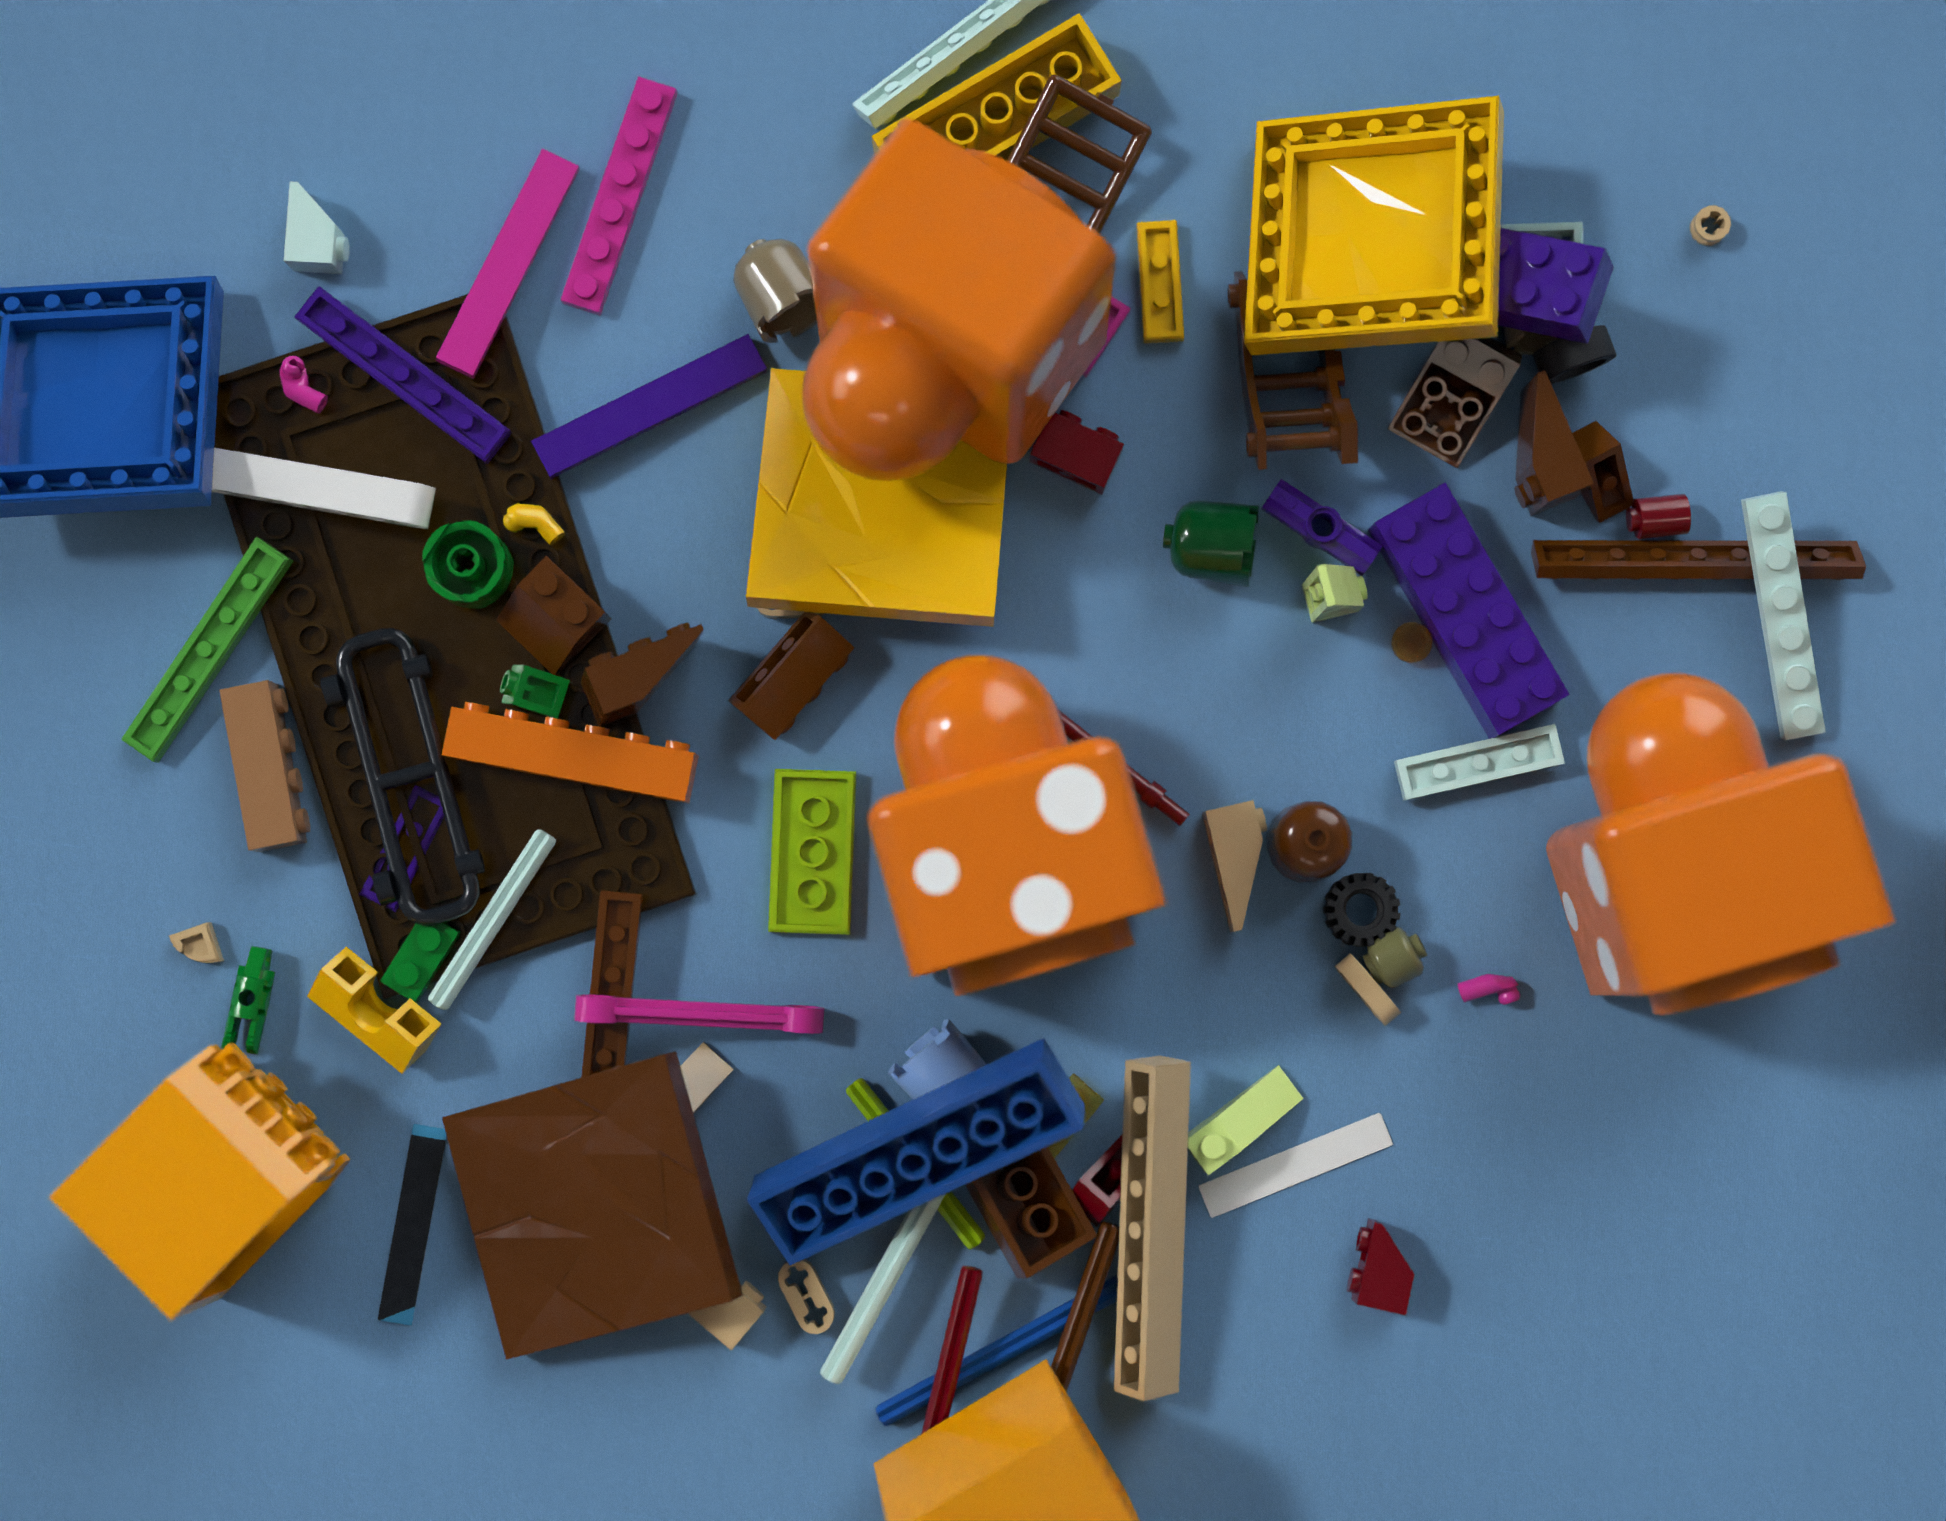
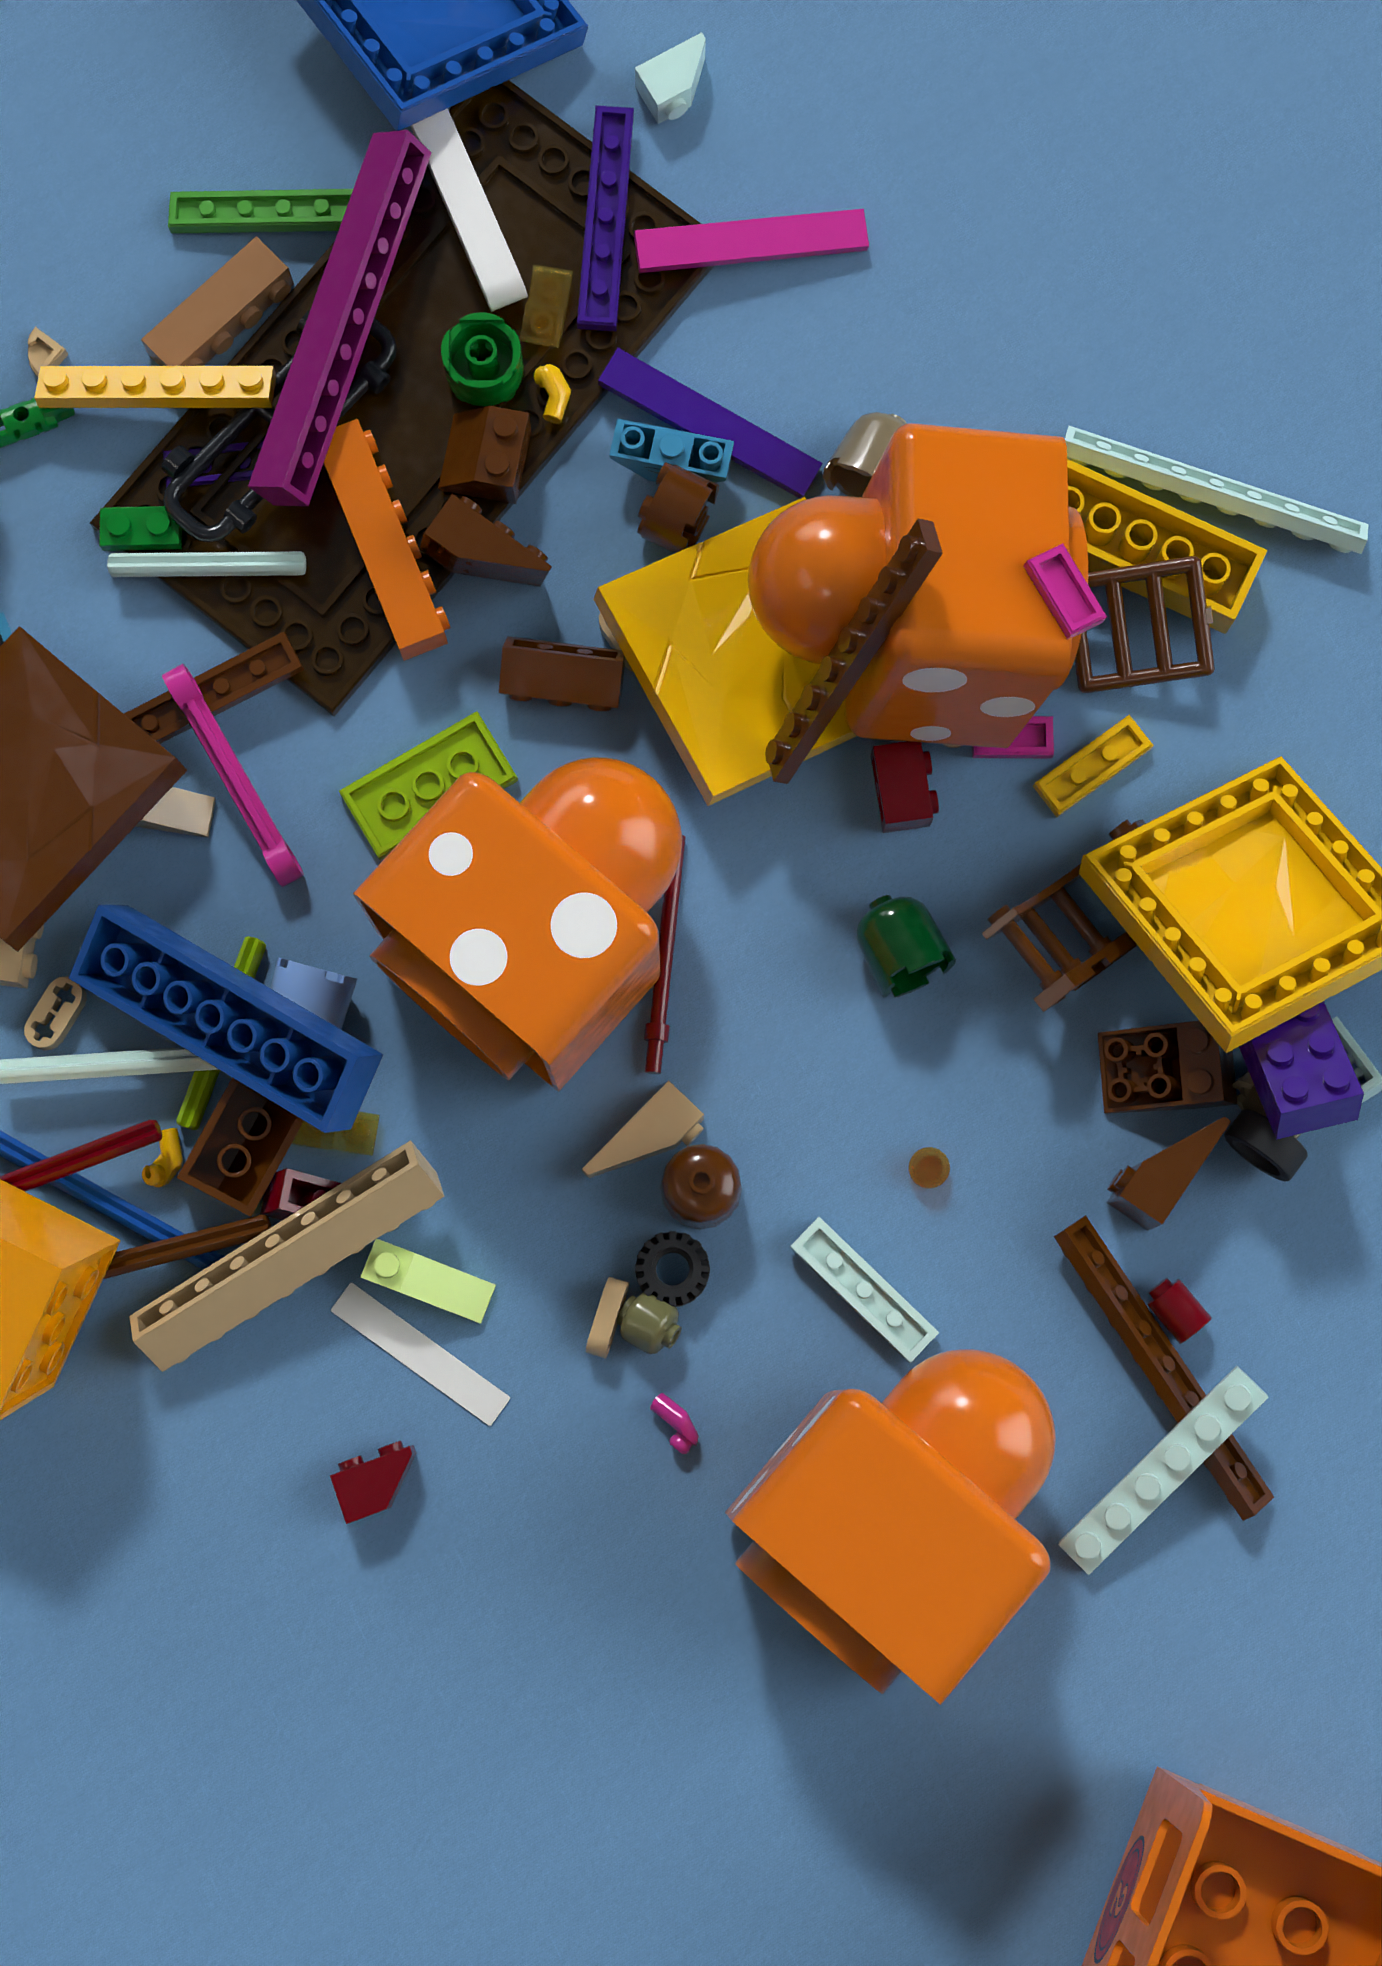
camera: 55 degrees right, 5 degrees down
(296, 385) = (541, 143): dark pink arm -> none
(302, 864) = (155, 387): none -> yellow plate
(348, 995) = (74, 490): yellow arch -> none
(351, 663) = (340, 319): none -> magenta brick
(451, 478) = (546, 306): none -> clear yellow slope
(534, 690) = (415, 478): green bracket -> none
(619, 196) = (867, 293): dark pink plate -> none
(659, 456) = (647, 448): none -> dark azure slope
(715, 482) = (678, 509): none -> reddish brown brick
(973, 416) = (854, 649): none -> reddish brown plate
(999, 1280) = (167, 1163): none -> yellow arm
(1048, 207) = (1065, 591): none -> dark pink tile
(1333, 592) = (926, 1070): yellowish green slope -> none
(1345, 541) = (975, 1001): dark purple piece -> none
(1468, 611) = (986, 1196): dark purple brick -> none
(1608, 470) = (1182, 1233): reddish brown slope -> none

